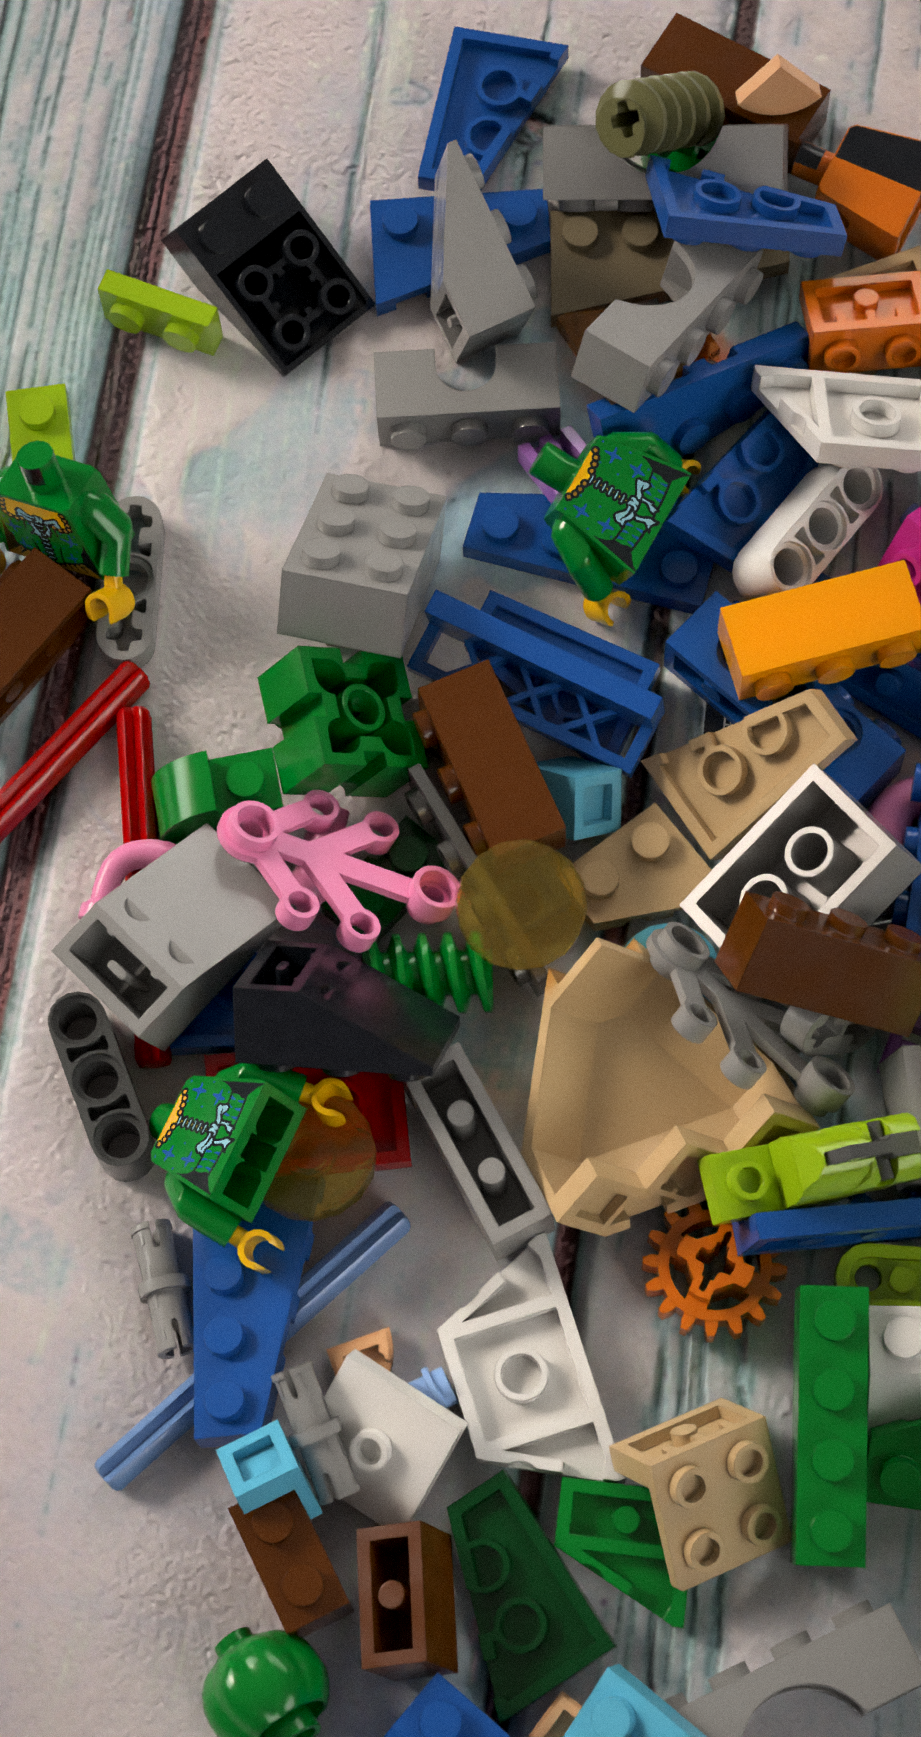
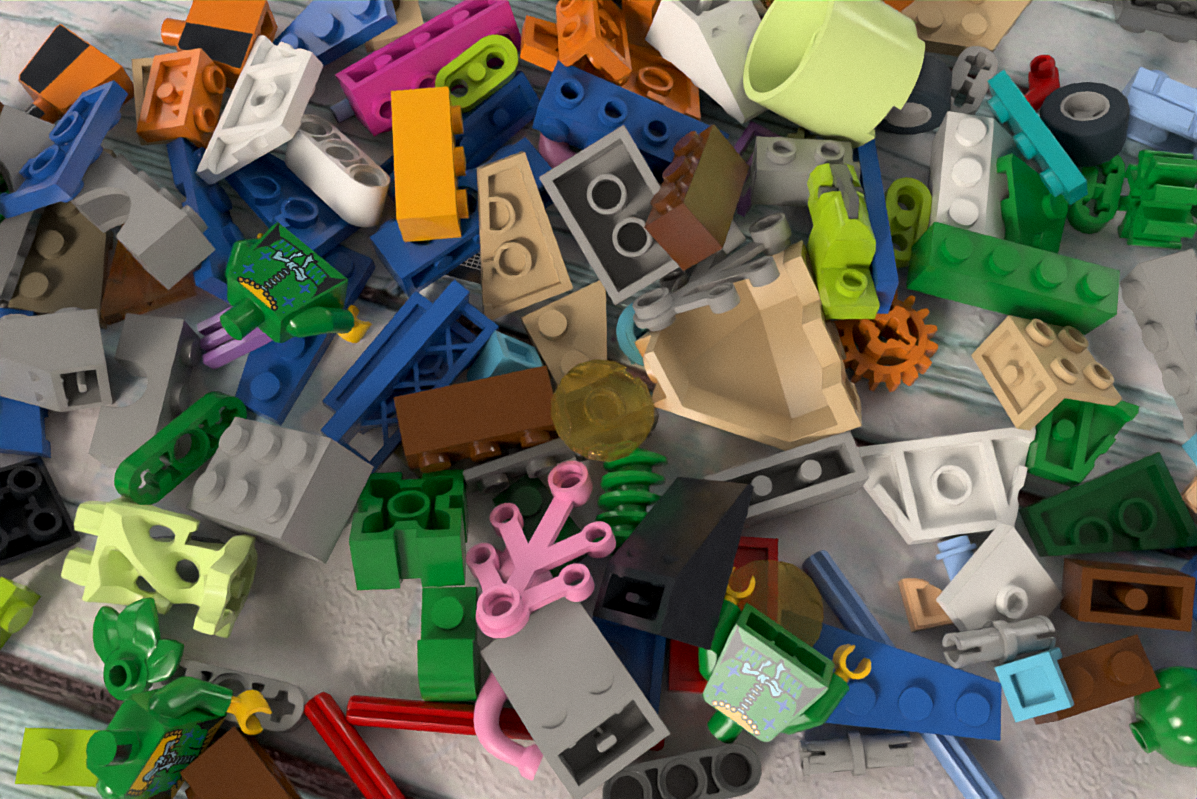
camera: 85 degrees left, 0 degrees up
(160, 465) = (133, 648): none -> green plate
(252, 446) = (128, 551): none -> yellowish green hips
(394, 425) = (160, 449): none -> green beam

